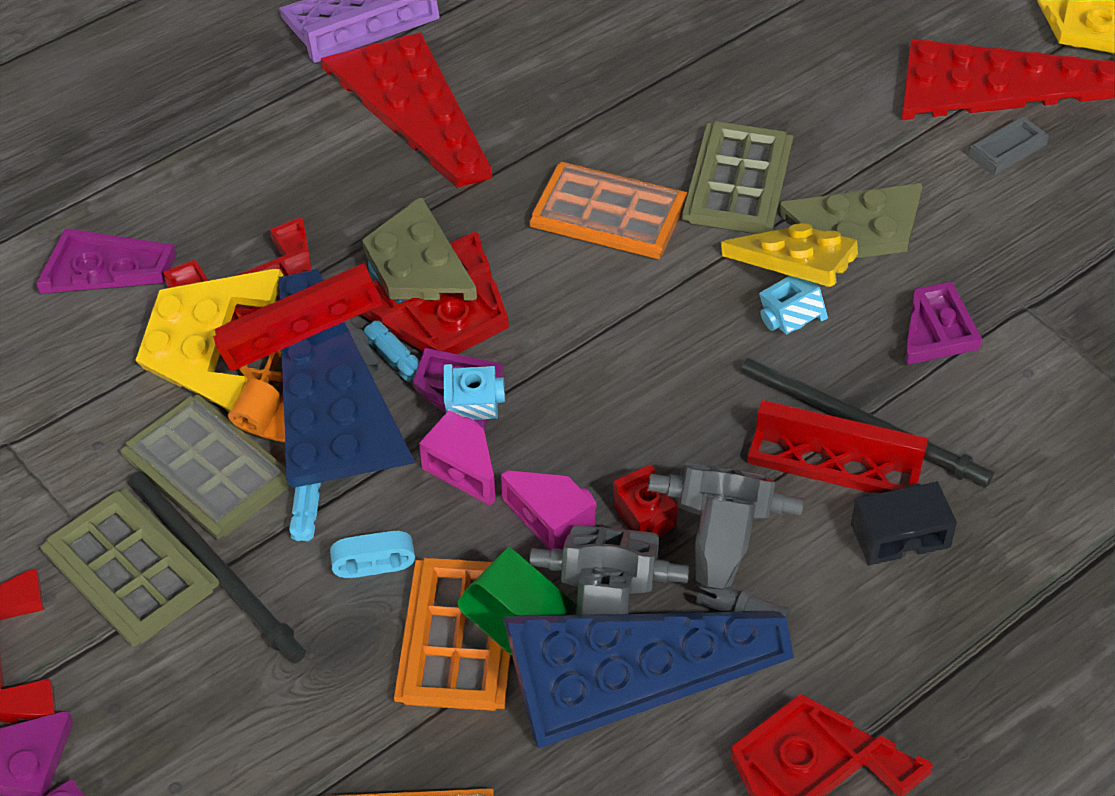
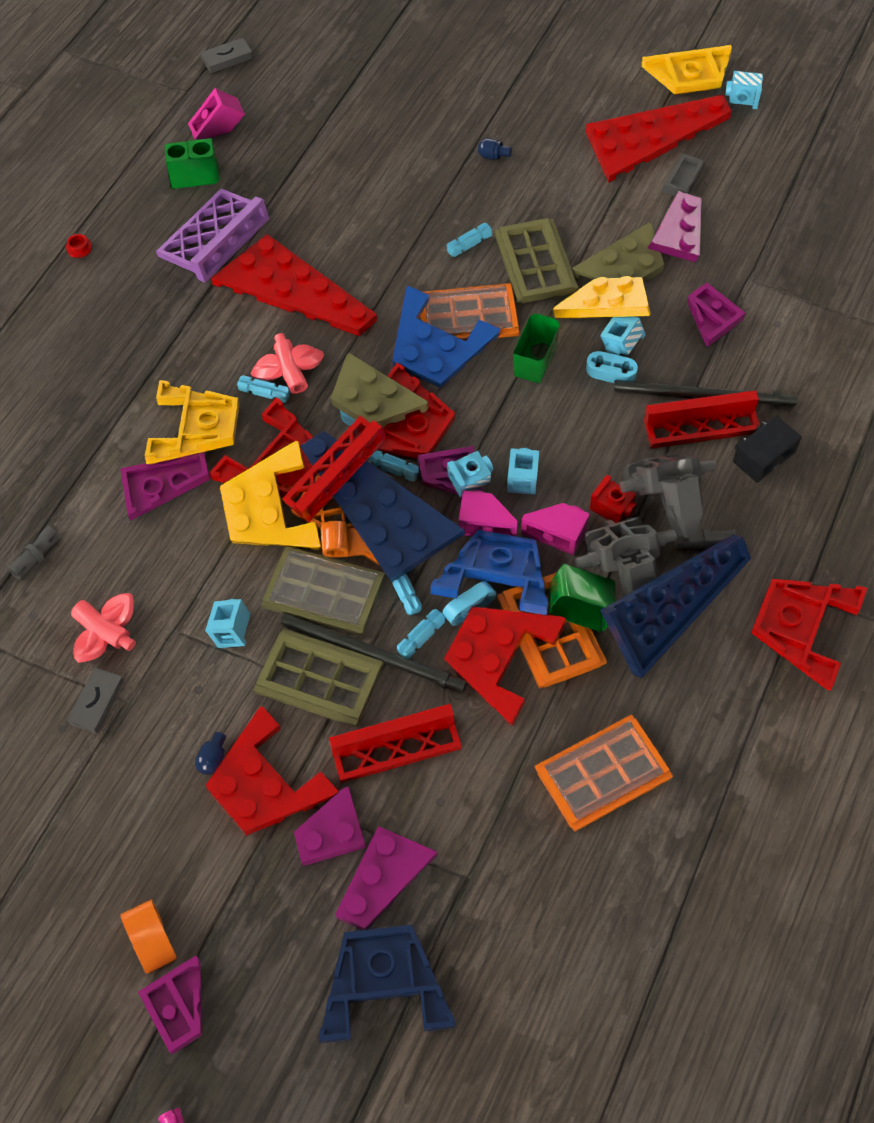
camera: 25 degrees left, 10 degrees up
(62, 453) = (228, 623): none -> medium azure brick
(166, 670) = (393, 732): none -> red fence
(195, 218) = (205, 423): none -> yellow wing
(288, 567) = (420, 634): none -> medium azure axle
(297, 204) = (263, 388): none -> medium azure axle
(344, 184) = (288, 363): none -> coral plant
(358, 619) = (488, 646): none -> red wing
(441, 515) = (497, 560): none -> blue wing
(529, 235) = (431, 351): none -> blue wing
(549, 420) = (522, 471): none -> medium azure brick
(668, 123) = (469, 239): none -> medium azure axle
(669, 253) = (543, 331): none -> green piece
(755, 341) = (611, 367): none -> medium azure beam
(769, 30) = (493, 149): none -> dark blue cylinder
(957, 204) = (680, 228): none -> wing

